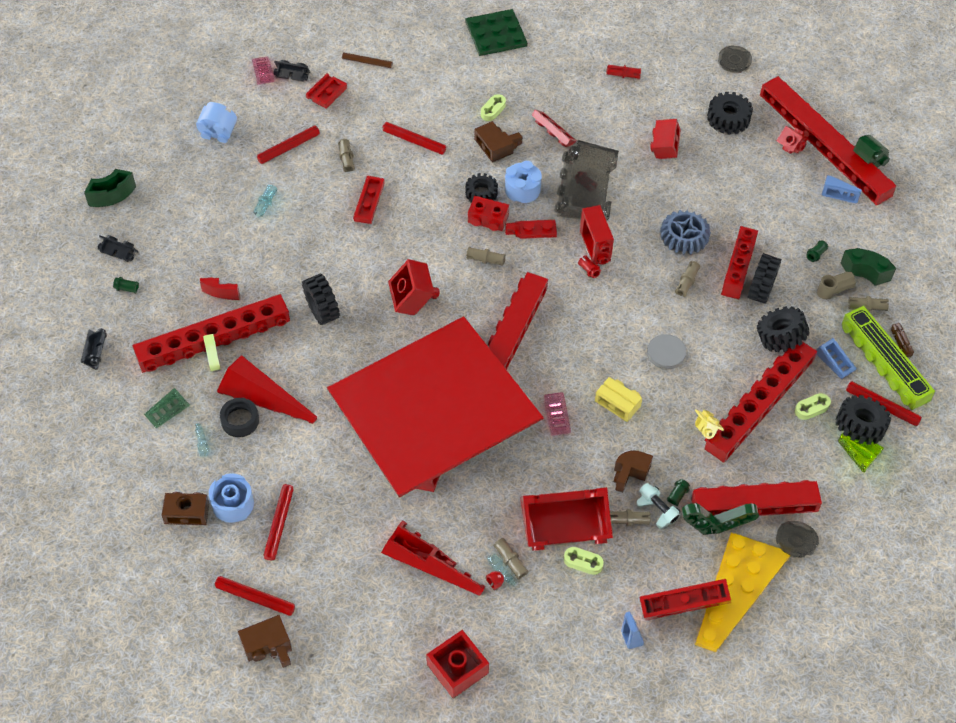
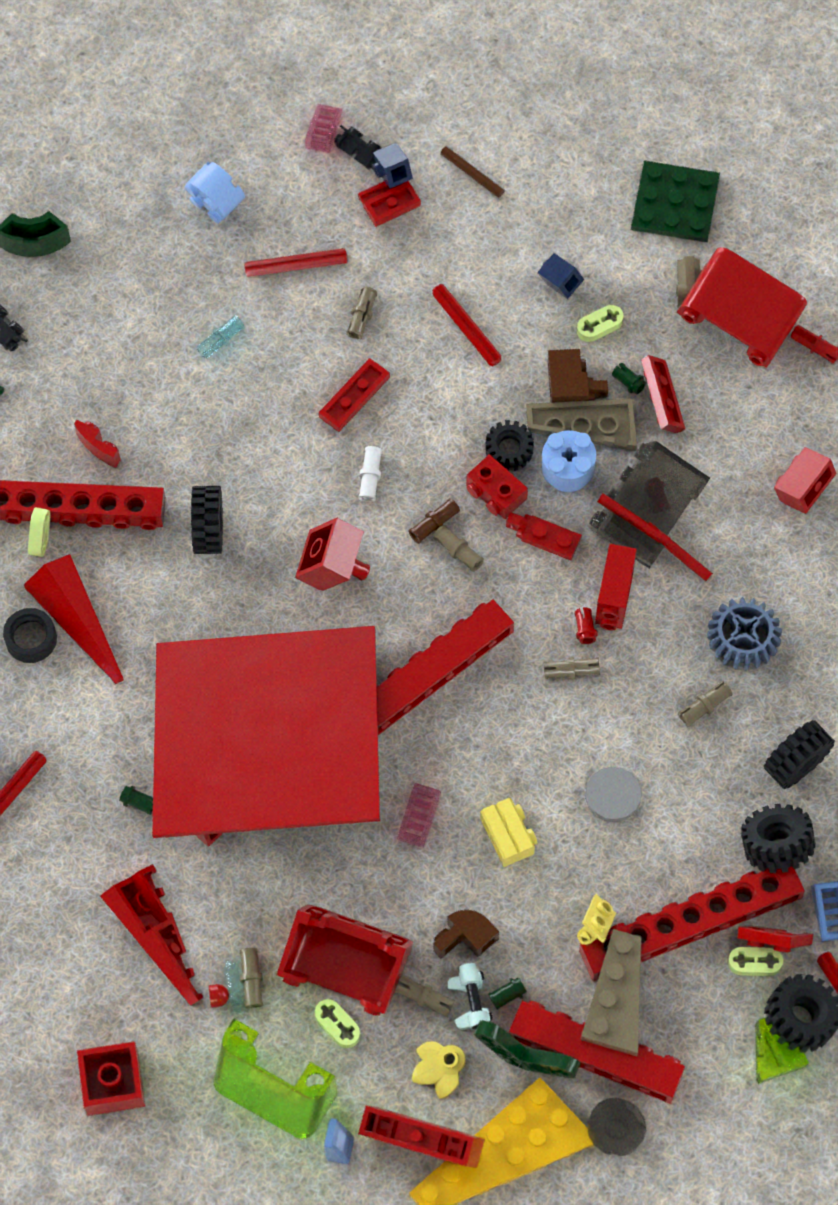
camera: 30 degrees right, 10 degrees up
(320, 69) = (392, 165): none -> dark blue brick
(370, 484) = (136, 799): none -> dark green pin
(405, 237) = (370, 474): none -> white pin
(455, 89) = (560, 275): none -> dark blue brick
(461, 247) = (434, 520): none -> reddish brown pin
(527, 128) = (634, 382): none -> dark green pin
(532, 68) = (687, 273): none -> dark tan piece
(532, 151) = (604, 421): none -> dark tan wing
(568, 619) = (289, 1107): none -> clear neon green windscreen
(574, 59) = (744, 304): none -> red windscreen
(584, 195) = (633, 519): none -> red bar
(596, 292) = (571, 668): none -> dark tan pin
(618, 205) = (687, 559): none -> red bar
(662, 558) = (435, 1070): none -> light yellow plate
(739, 262) = (788, 713): red brick -> none
(751, 461) = (615, 1003): none -> dark tan wing
(823, 384) = (780, 938): none -> red wing

